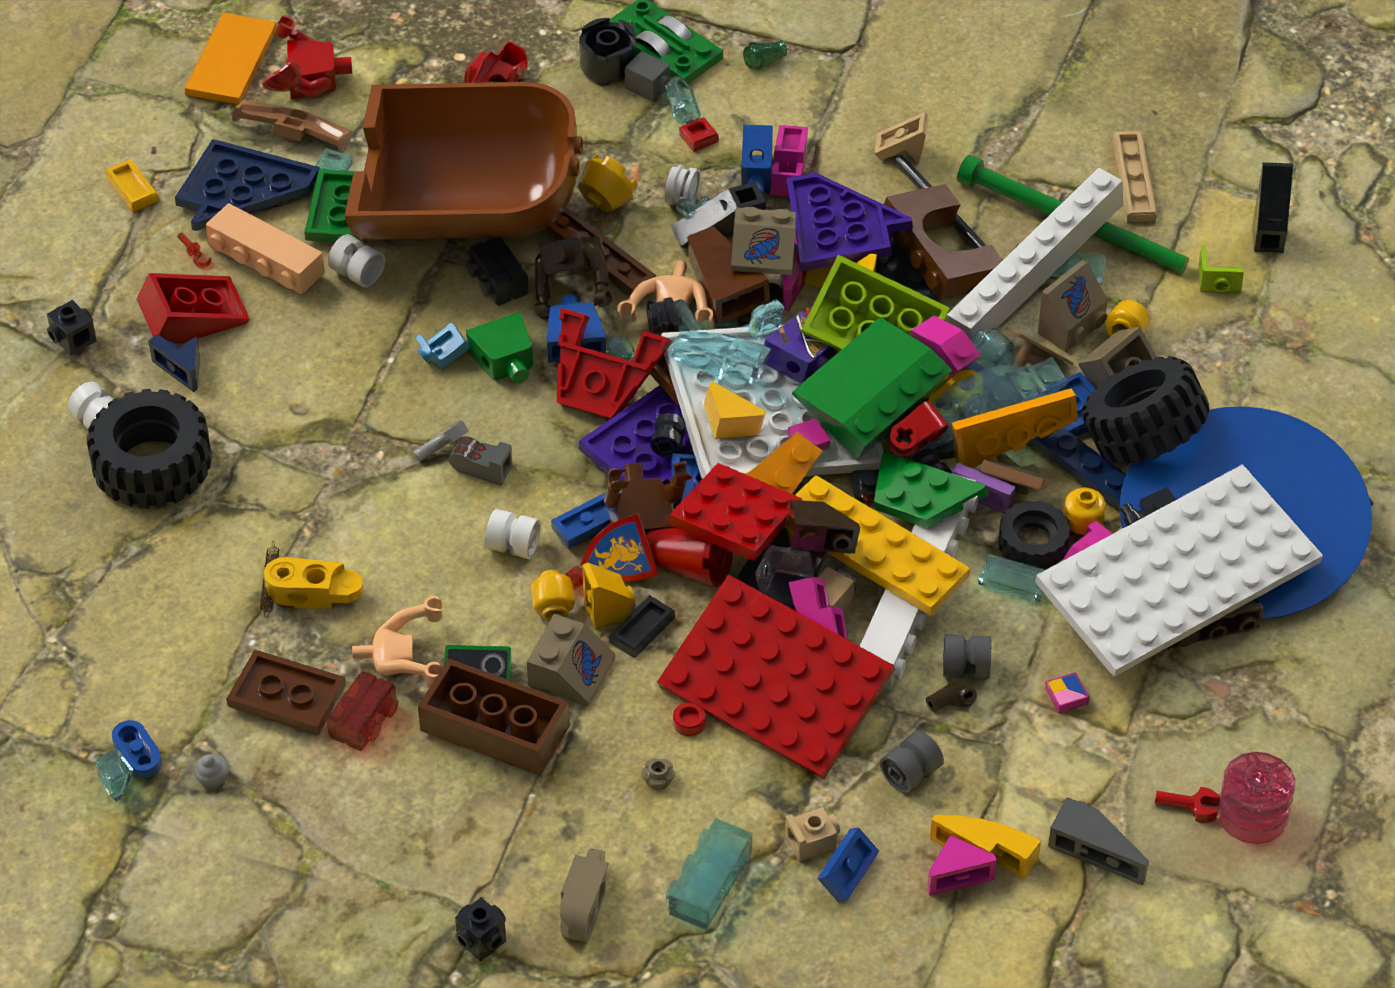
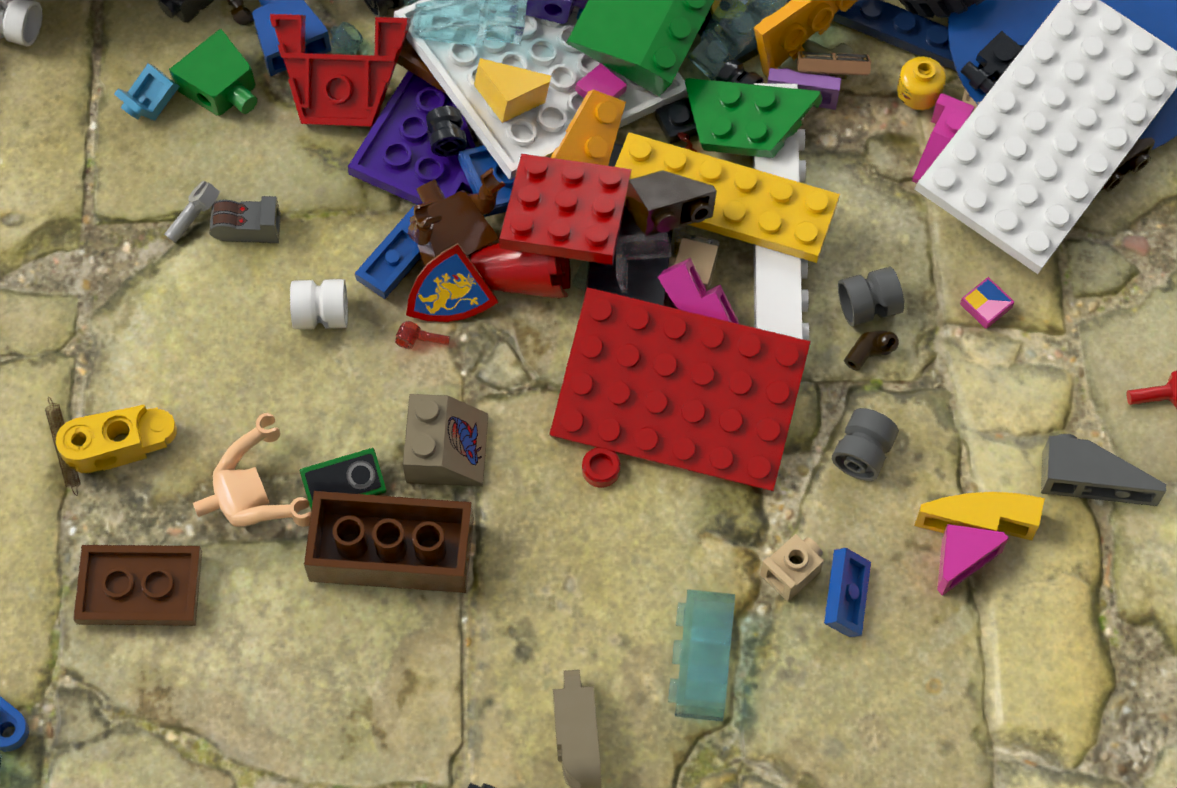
camera: 20 degrees left, 15 degrees up
(211, 770) = (90, 714): light grey plate -> none
(362, 711) = (236, 581): clear red brick -> none
(552, 594) = (393, 365): yellow head -> none
(605, 596) = (454, 350): yellow slope -> none
(642, 626) = (503, 369): black tile -> none
(661, 779) = (591, 555): dark tan plate -> none
(920, 427) = (719, 43): red piece -> none
(1011, 577) = (876, 183): clear light blue tile -> none
(1034, 515) = (884, 102): black tyre -> none

